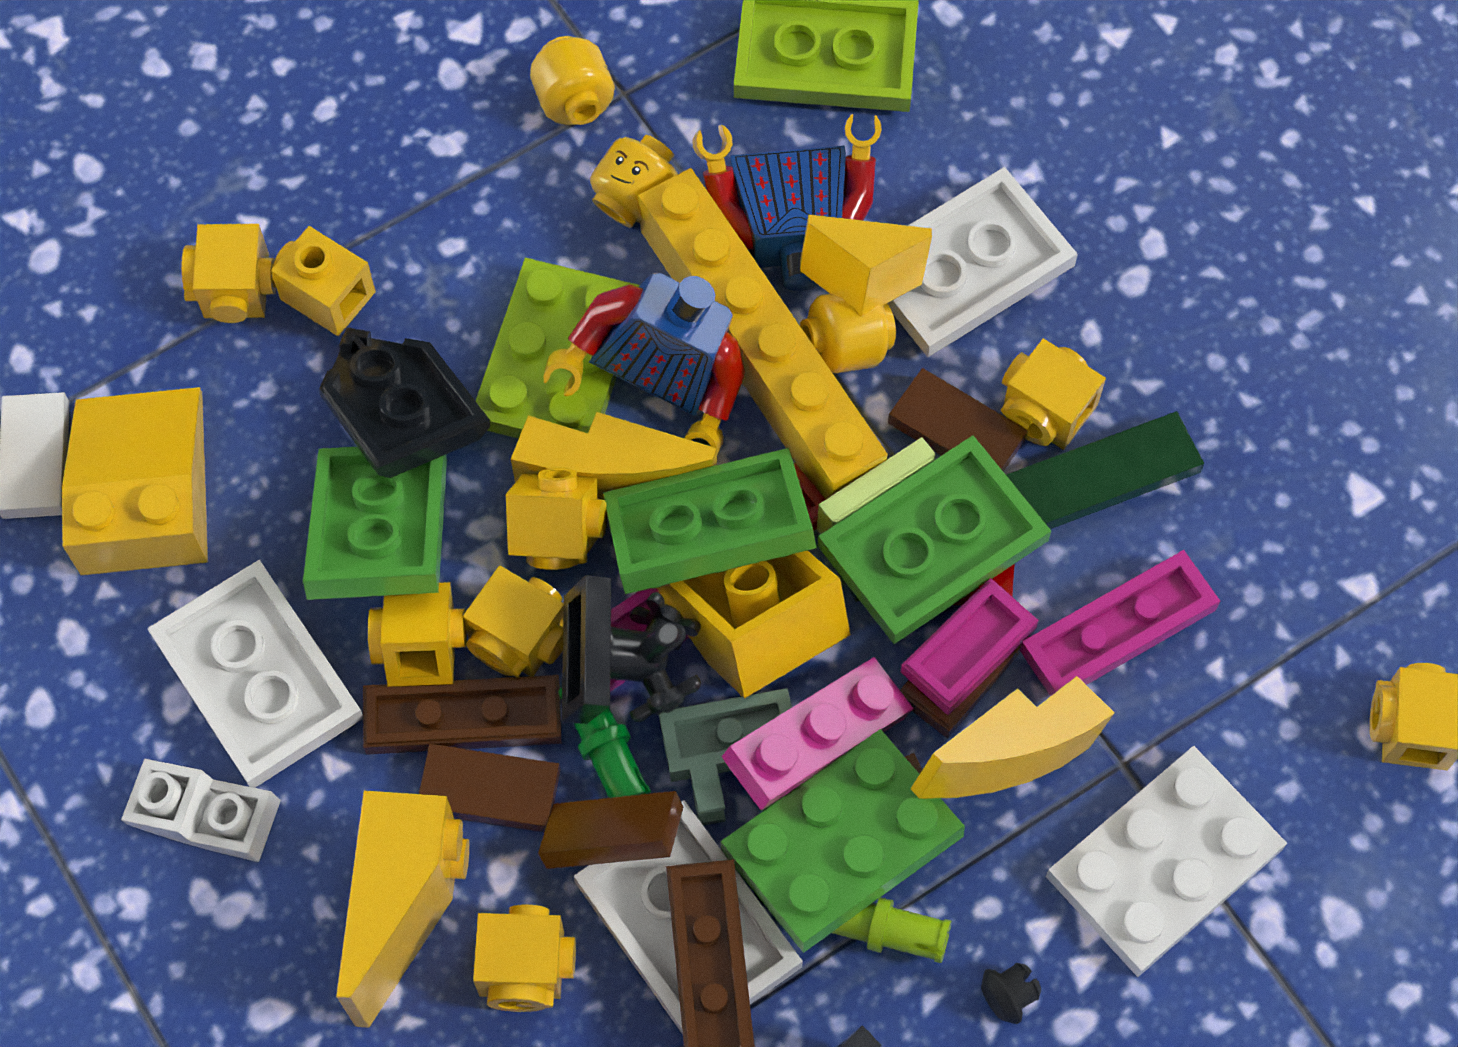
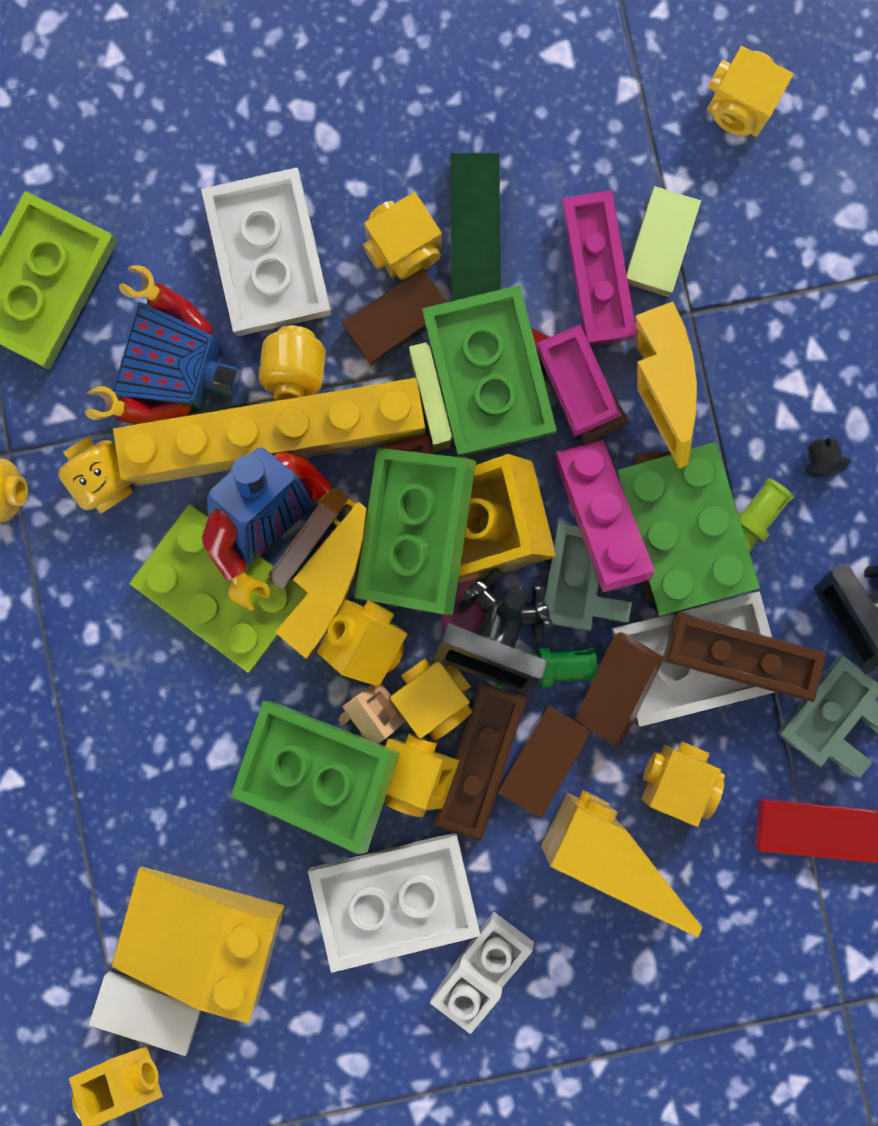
camera: 70 degrees left, 20 degrees up
(228, 272) = (50, 817): yellow brick -> none
(322, 280) = (89, 748): yellow brick -> none
(400, 402) = (216, 723): black tile -> none
(472, 561) = (373, 713): none -> light nougat tile
(664, 411) = (307, 537): none -> reddish brown tile
(864, 259) = (249, 329): yellow slope -> none
(1165, 860) = (773, 313): white plate -> none
(1191, 691) = (662, 241): none -> yellowish green tile

